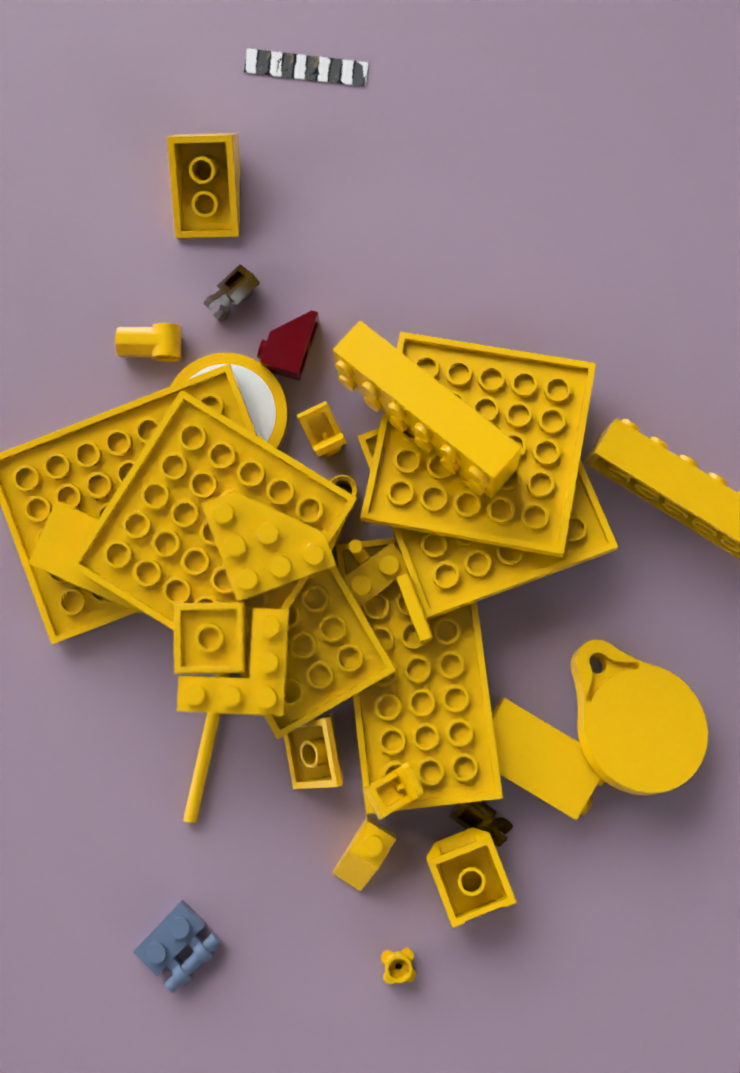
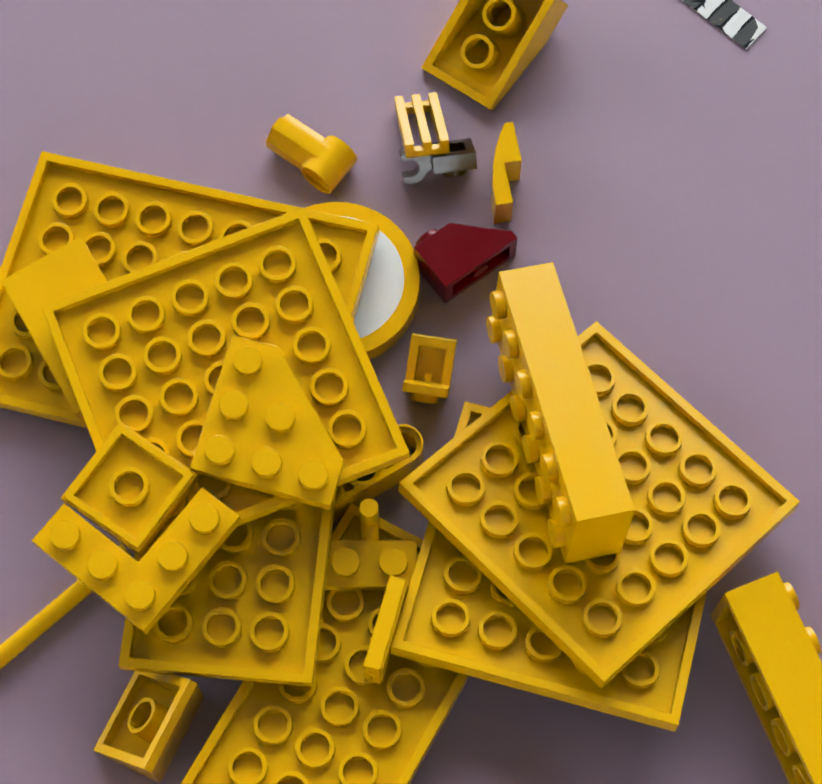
camera: 30 degrees right, 15 degrees down
(193, 265) = (419, 108): none -> yellow tile
(275, 268) = (505, 168): none -> yellow slope

